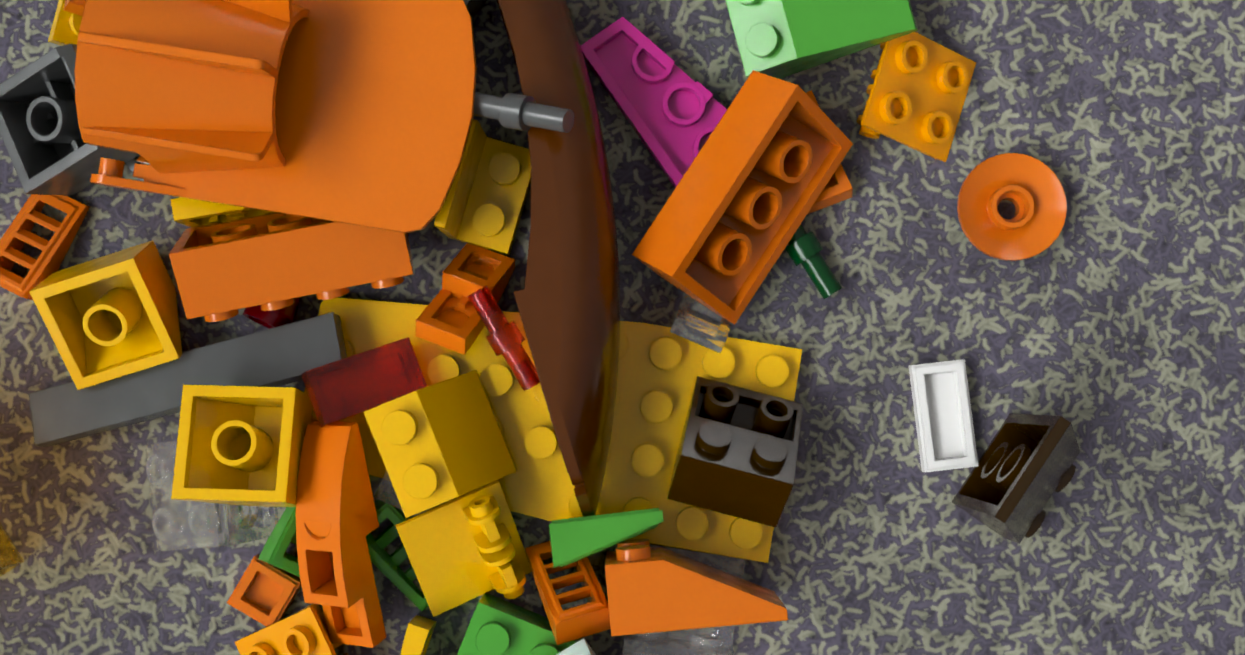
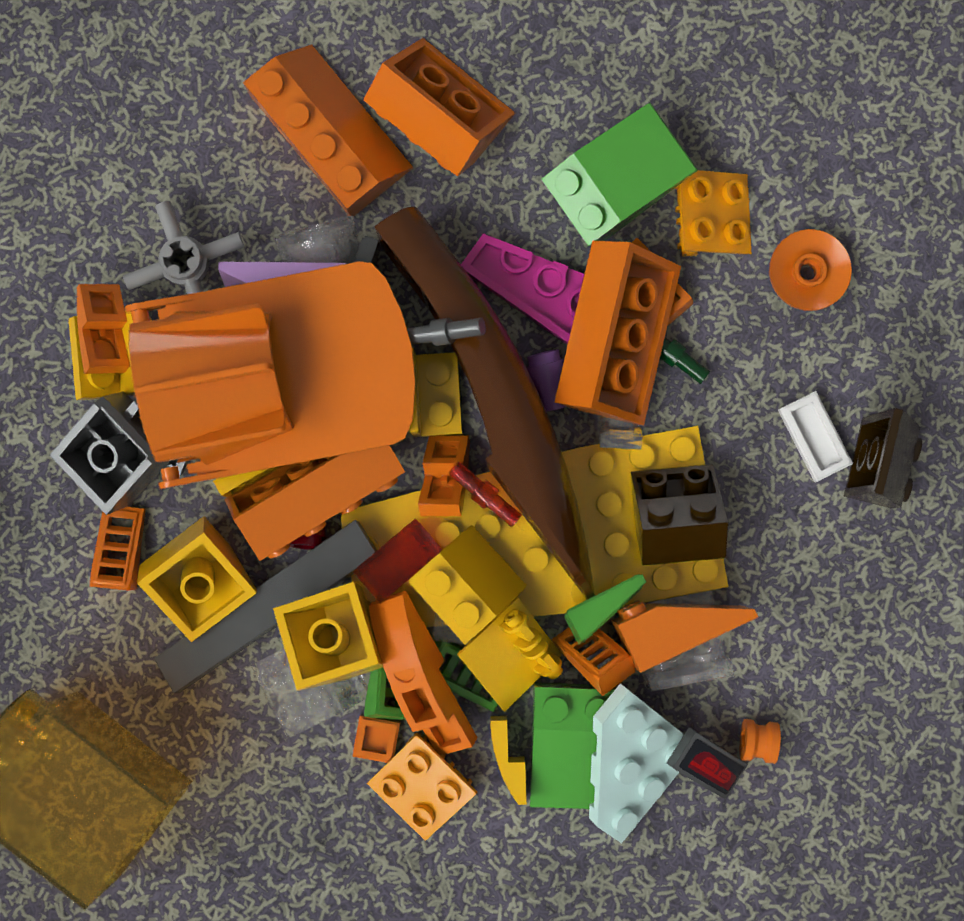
camera: 20 degrees left, 0 degrees up
(634, 217) = (545, 372): none -> medium lavender cone

